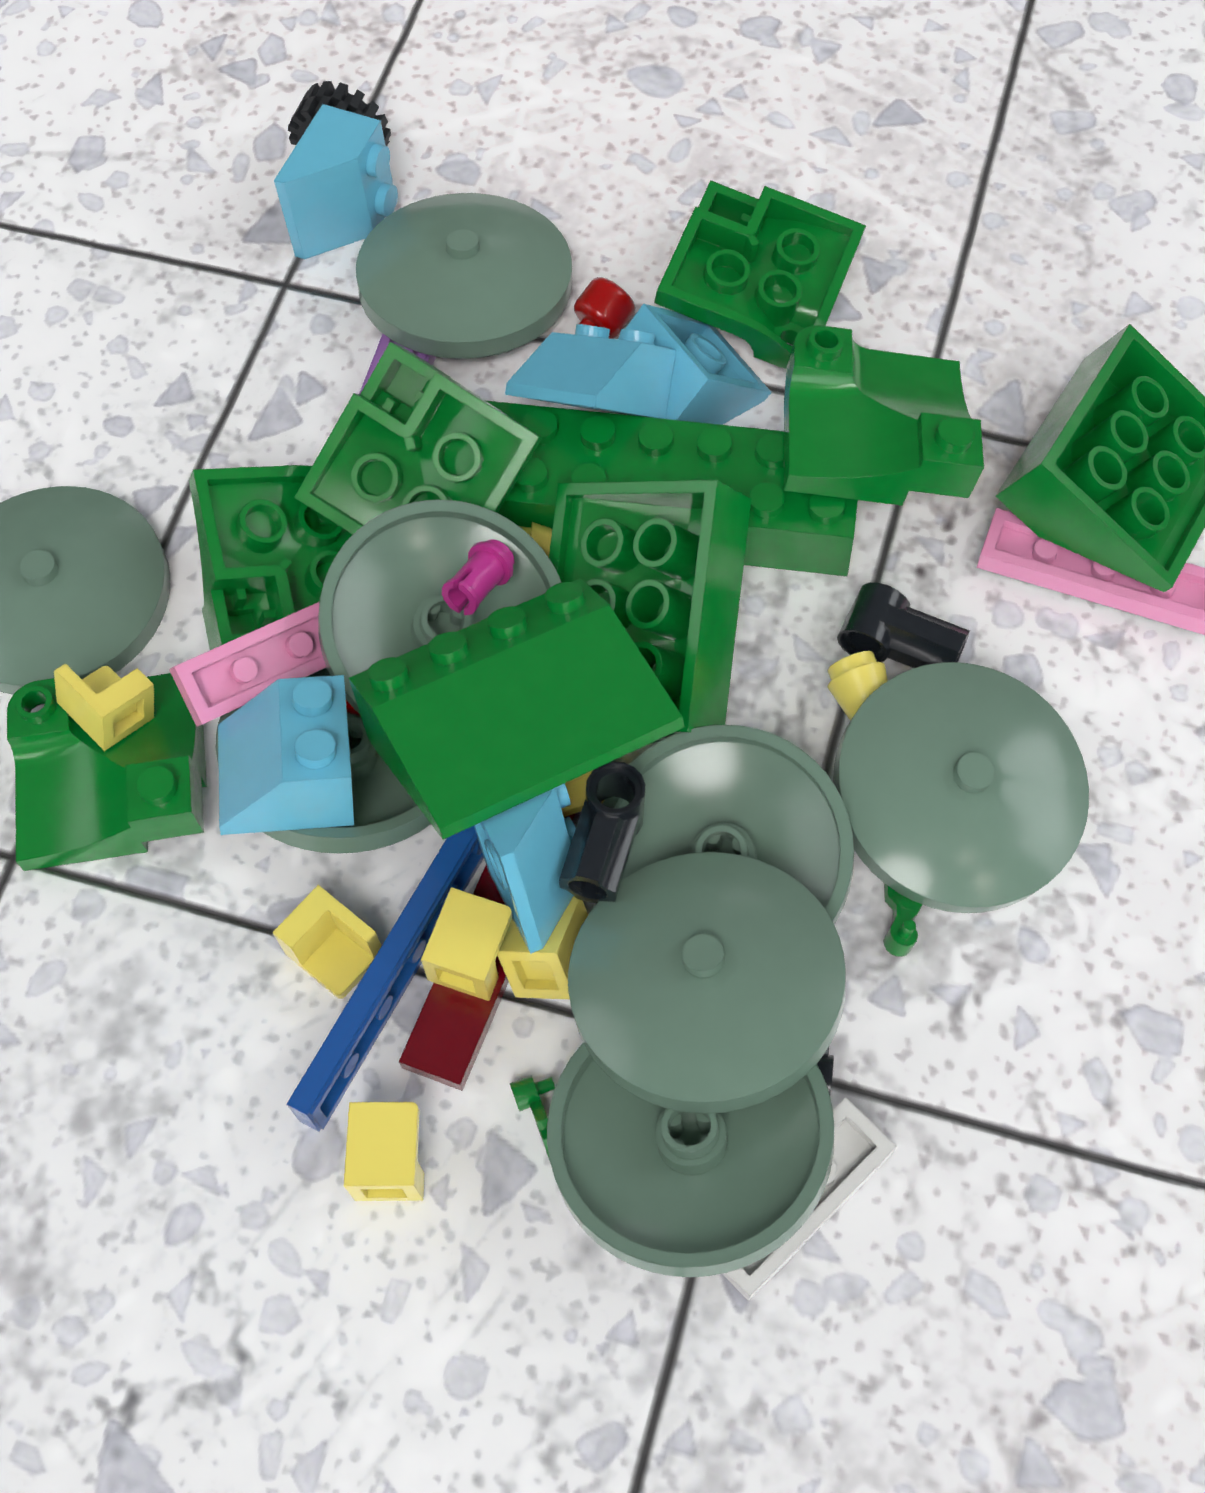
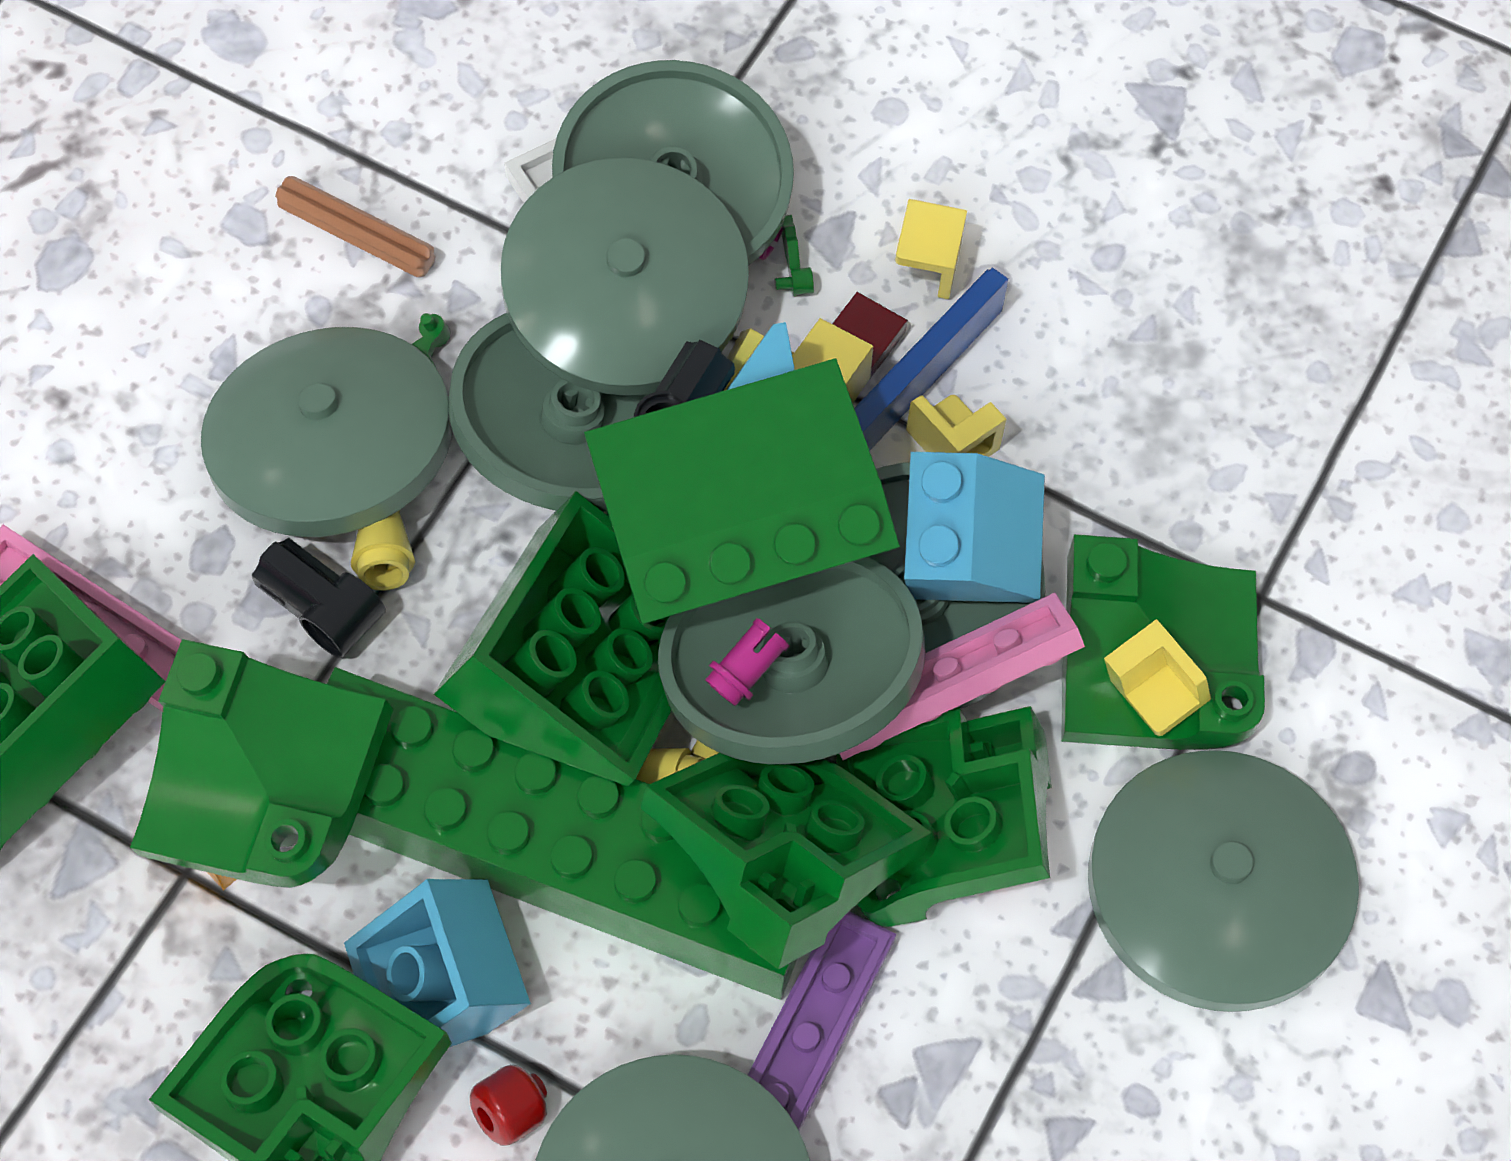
camera: 175 degrees left, 0 degrees up
(598, 372) = (558, 929): medium azure slope -> none
(1035, 1041) = (355, 226): none -> nougat axle

